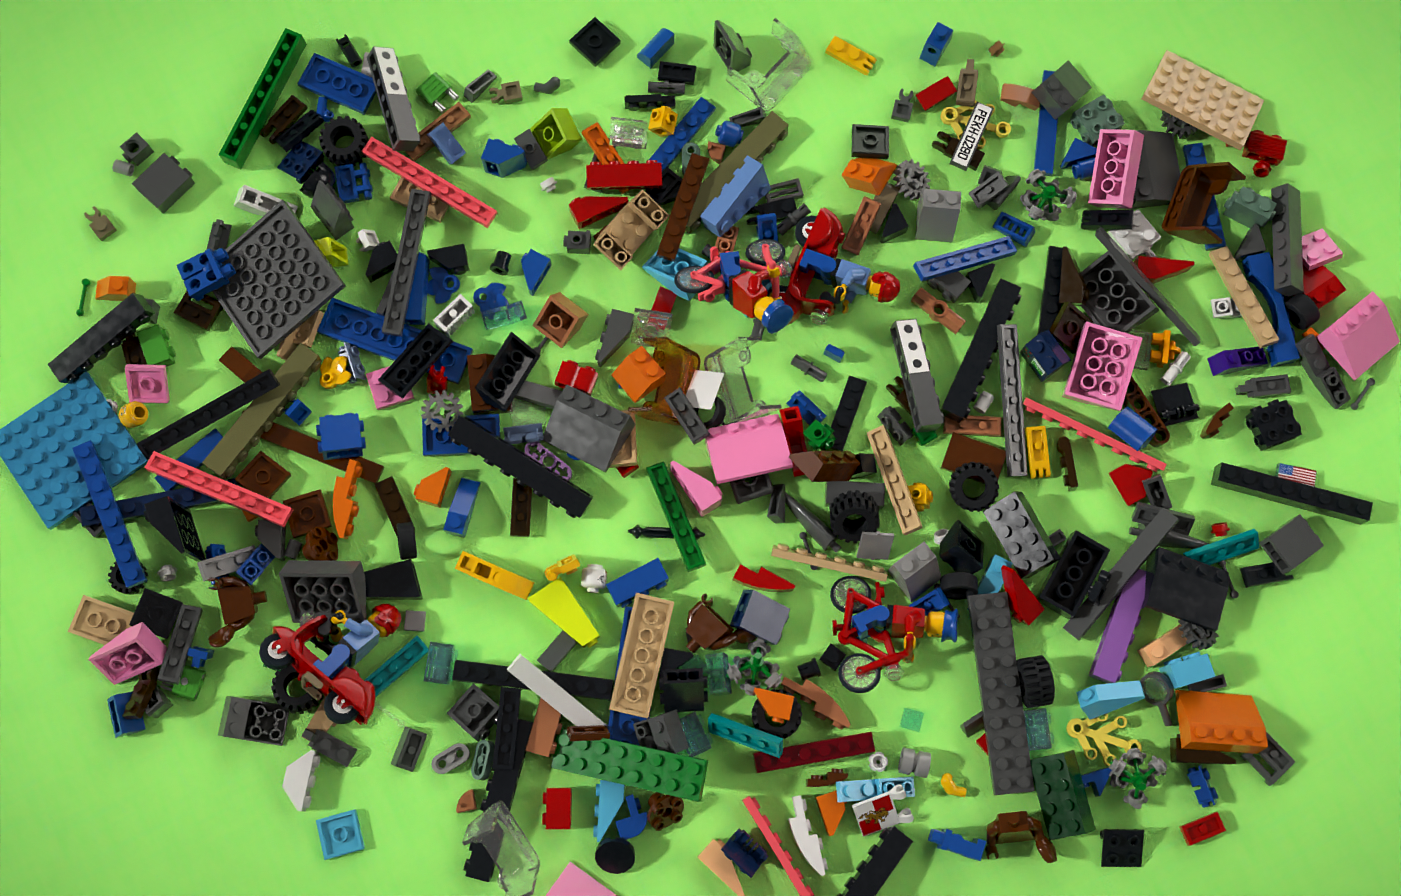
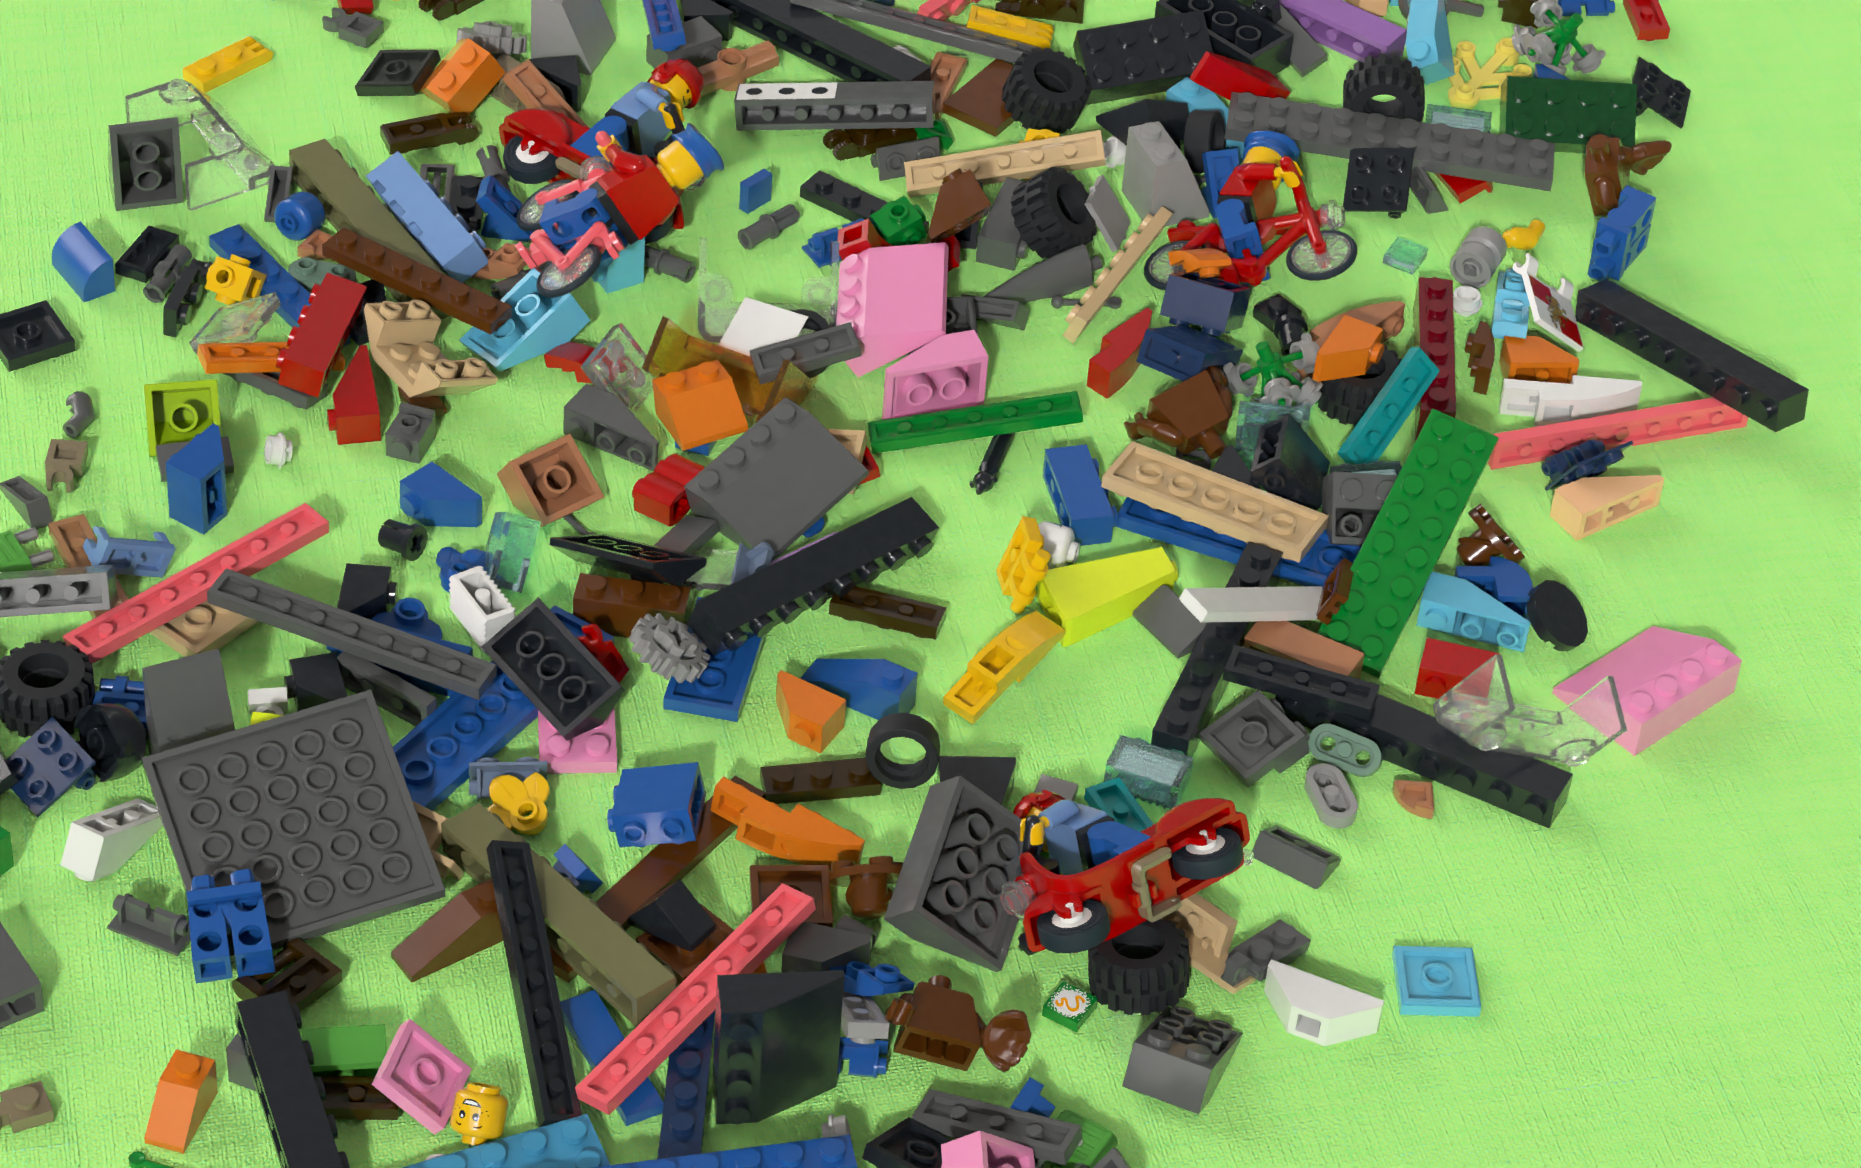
camera: 75 degrees left, 35 degrees down
(268, 463) = (674, 917): none -> black slope
(810, 616) = (1205, 302): none -> dark blue brick
(825, 172) = (428, 132): none -> dark brown hinge
(831, 605) = (1202, 261): none -> orange slope
(961, 692) = (1378, 180): none -> black hinge

